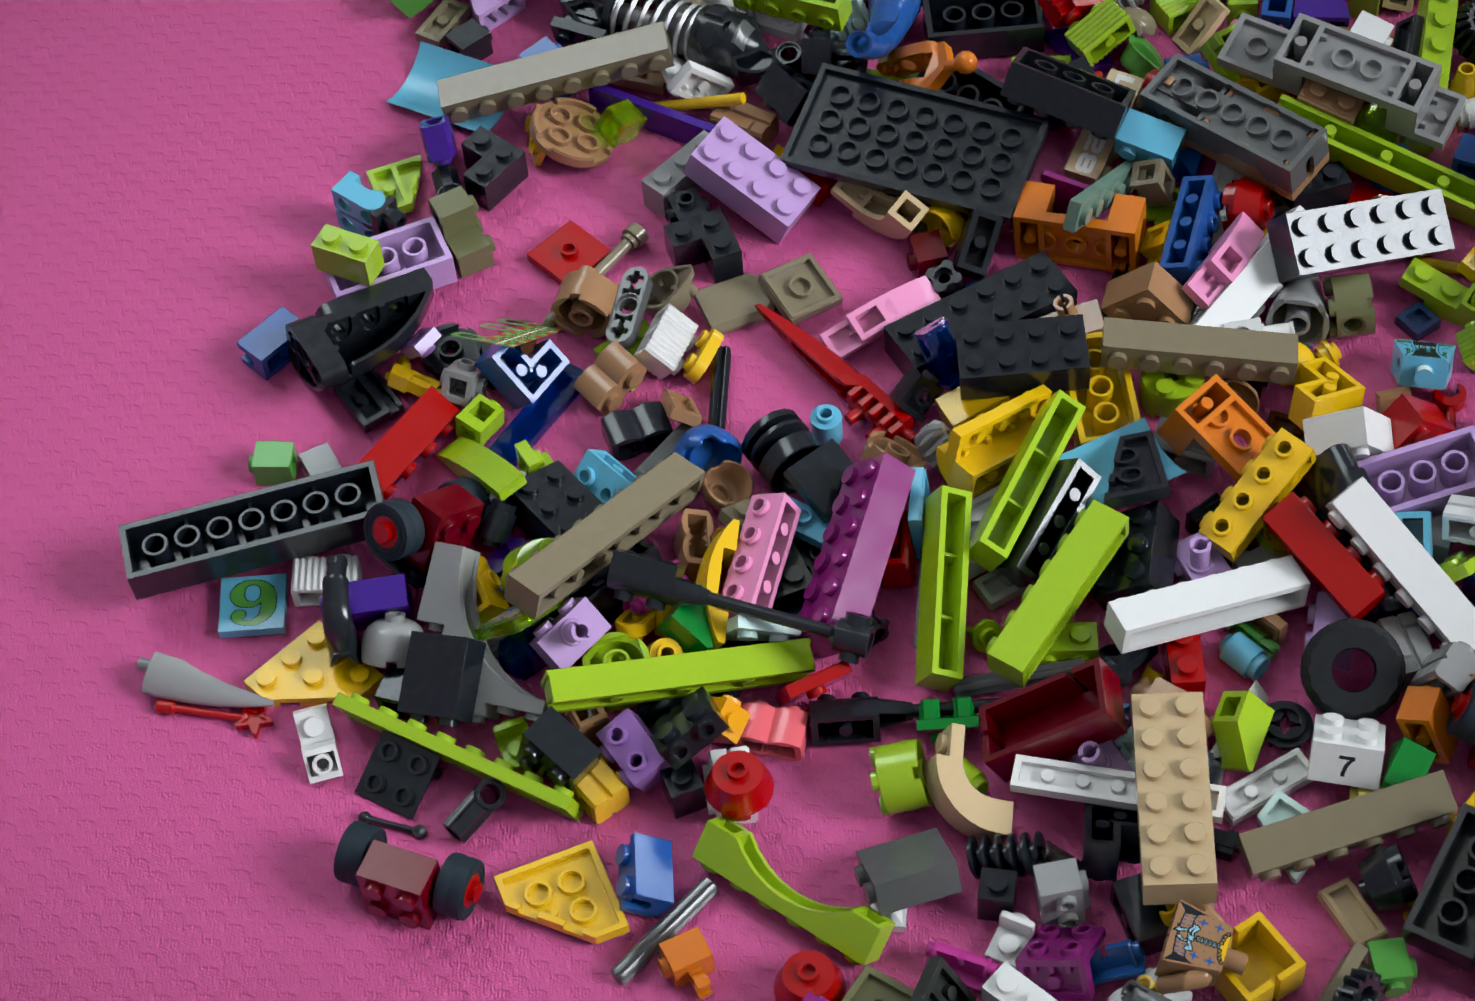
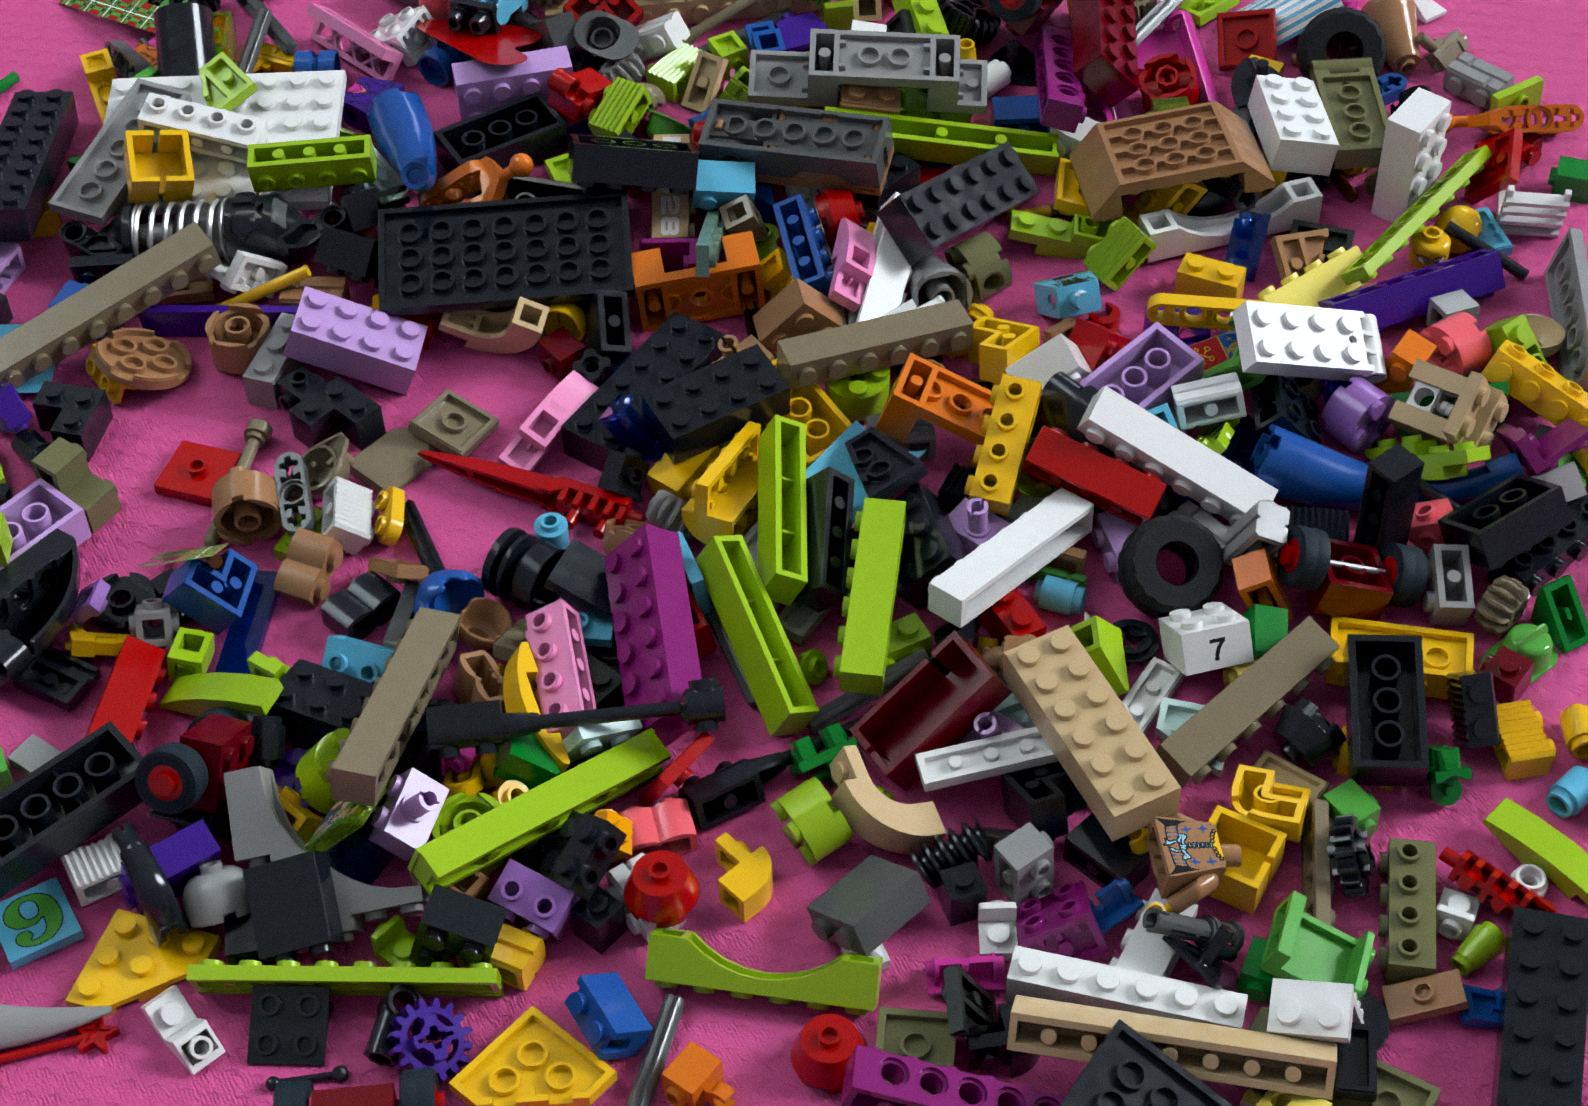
camera: 30 degrees left, 5 degrees down
(497, 820) = (428, 1025): none -> dark purple gear
(620, 123) = (187, 335): clear neon green brick -> none
(657, 137) = (236, 336): none -> medium nougat brick
(824, 809) = (748, 878): none -> yellow brick
(1314, 929) = (1269, 802): none -> yellow brick
(1417, 321) = (1039, 265): dark blue tile -> none

